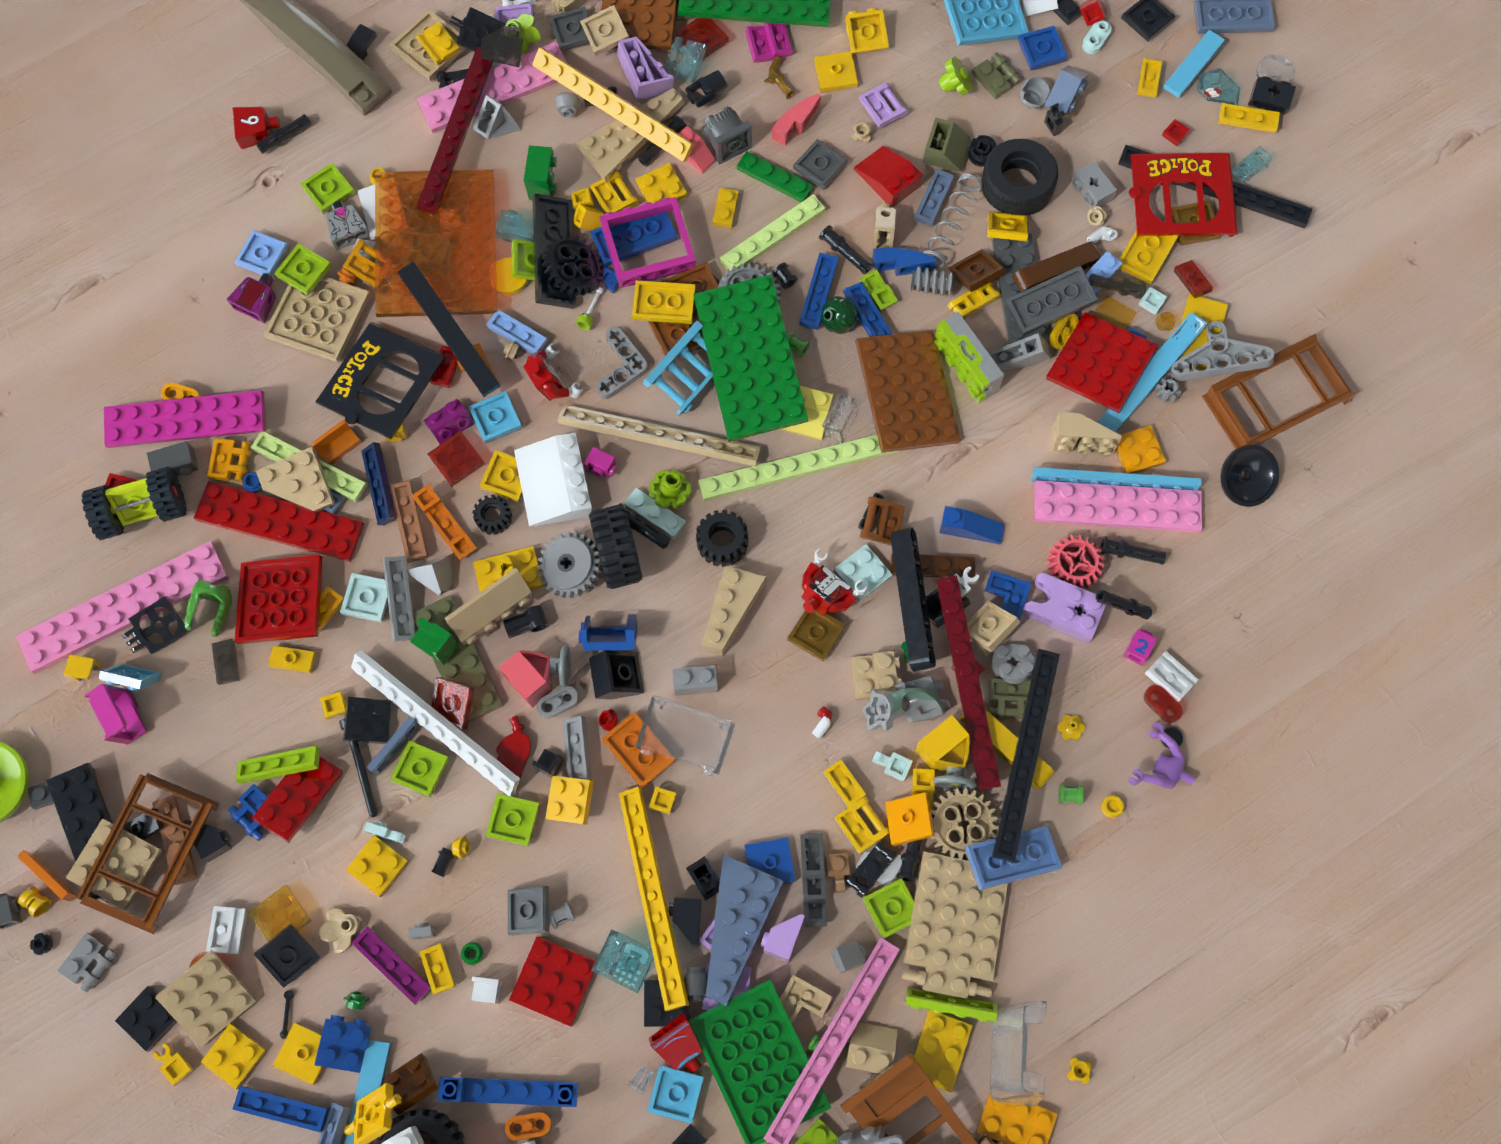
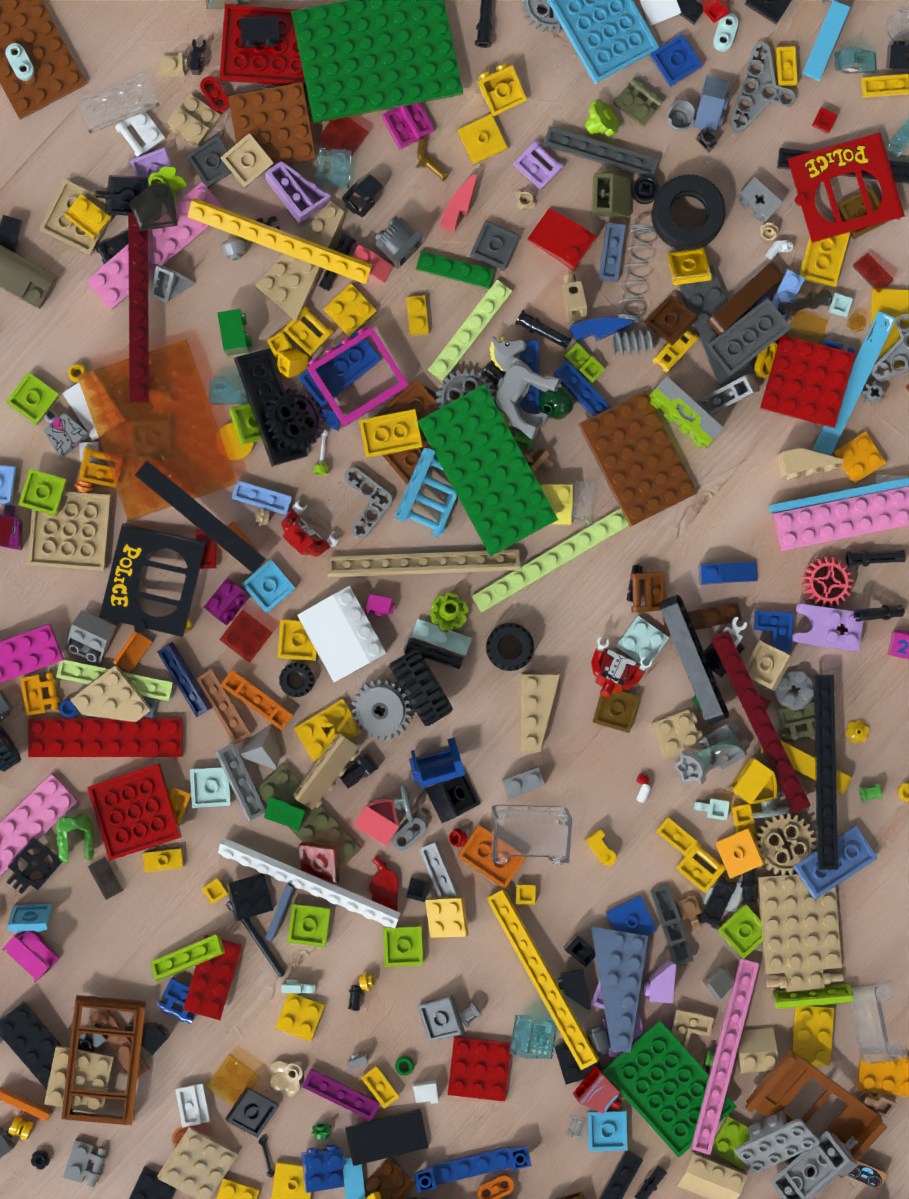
camera: 15 degrees left, 15 degrees up
(299, 418) = (90, 637): none -> light grey slope
(425, 1029) = (386, 1137): none -> black tile
(760, 780) = (603, 853): none -> yellow leg
(804, 287) = (517, 384): none -> light grey animal
(809, 367) = (538, 459): none -> medium nougat hips
(946, 107) = (600, 152): none -> dark grey plate
(1113, 99) = (756, 99): none -> light grey beam

